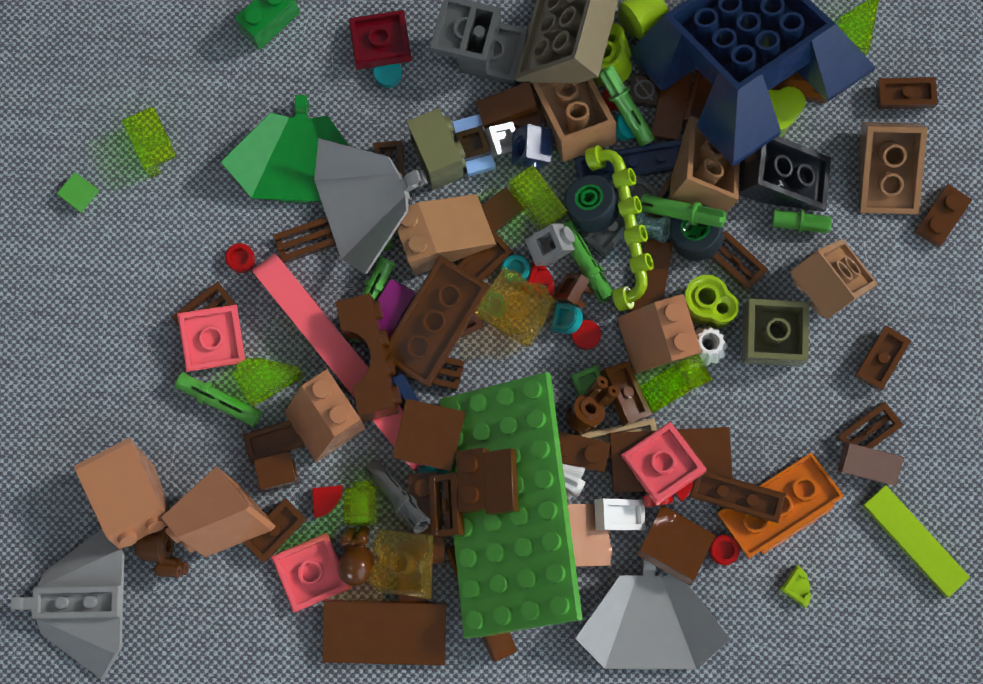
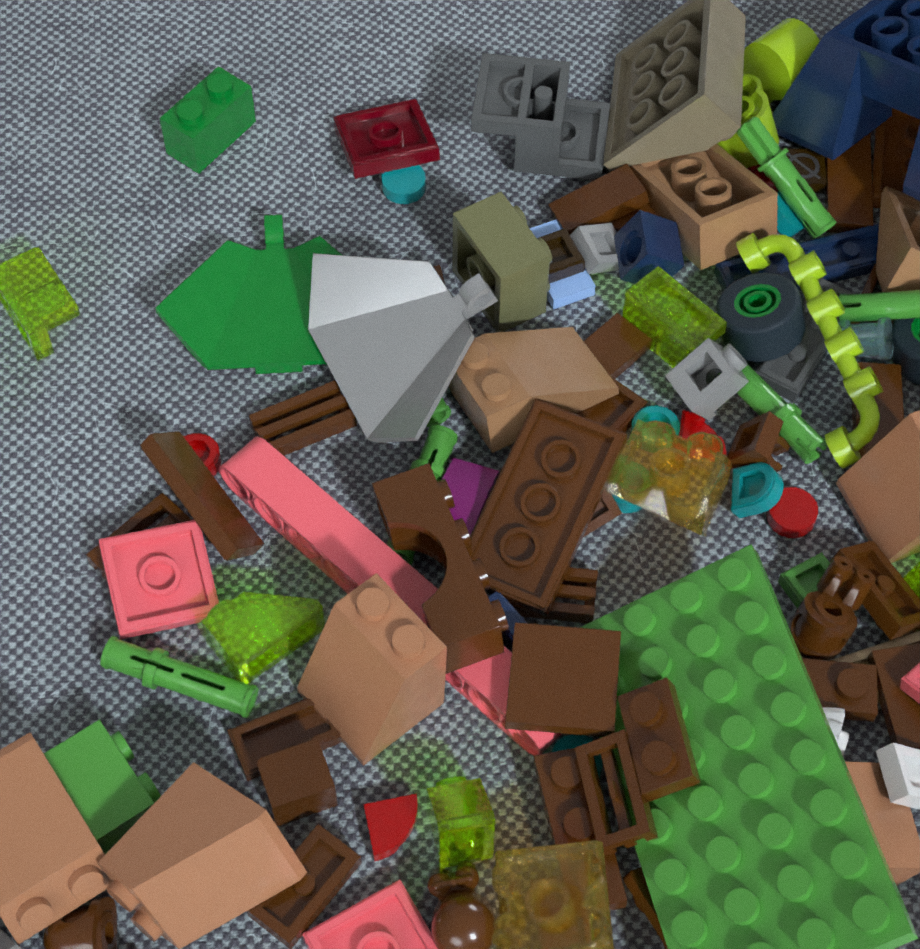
camera: 10 degrees left, 20 degrees down
(171, 462) = (102, 782): none -> bright green brick
(239, 288) = (201, 495): none -> reddish brown tile
(403, 504) = (537, 801): dark grey pin -> none
(500, 481) = (711, 727): reddish brown tile -> none

